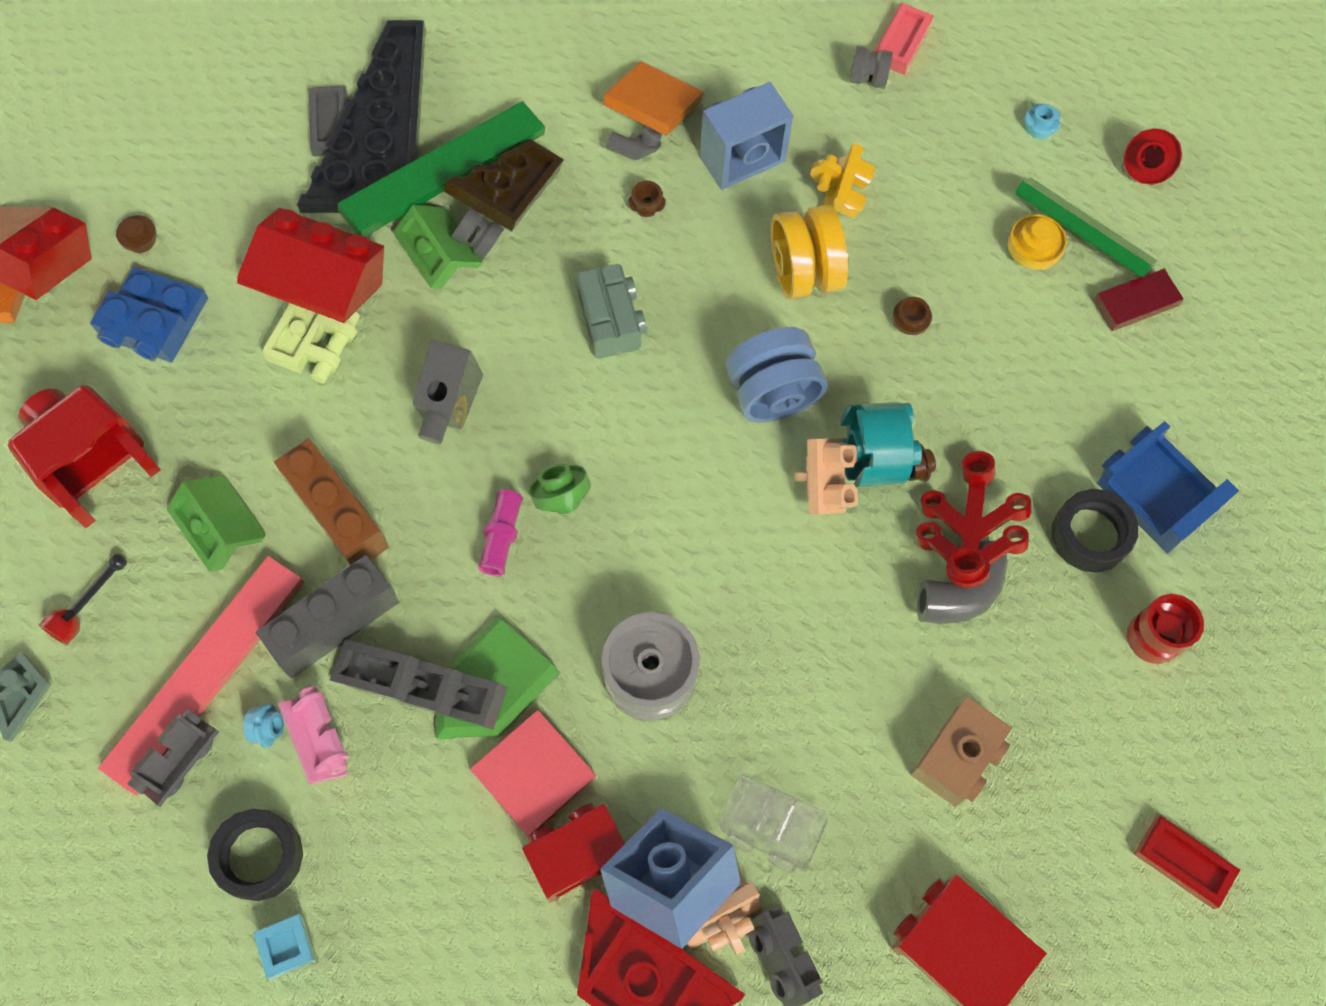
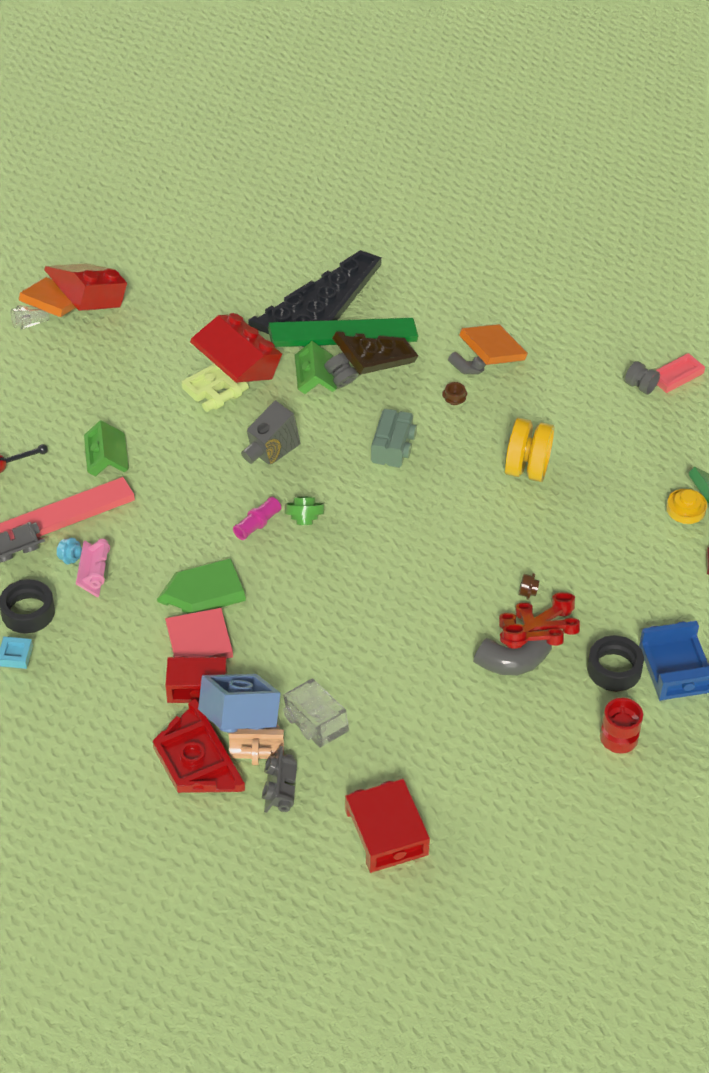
camera: 30 degrees right, 20 degrees down
(74, 445) = (56, 383): red piece -> none
(136, 234) = (152, 303): reddish brown plate -> none
(149, 315) = (133, 343): blue plate -> none
(325, 110) = (294, 281): dark grey tile -> none
(327, 617) = (136, 515): dark grey brick -> none
(331, 503) = (172, 466): dark orange brick -> none
(419, 683) = (163, 566): dark grey slope -> none
(628, 654) = (296, 610): light grey wheel -> none
(745, 135) = (532, 379): medium blue brick -> none
(776, 374) = (466, 501): medium blue wheel -> none
(826, 476) = (464, 564): light nougat hips -> none
(837, 179) = (578, 426): yellow hips -> none
(882, 442) = (506, 560): teal brick -> none
(912, 316) = (578, 513): reddish brown plate -> none
(962, 753) = (451, 732): medium nougat brick -> none
(1187, 862) = (555, 851): red tile -> none

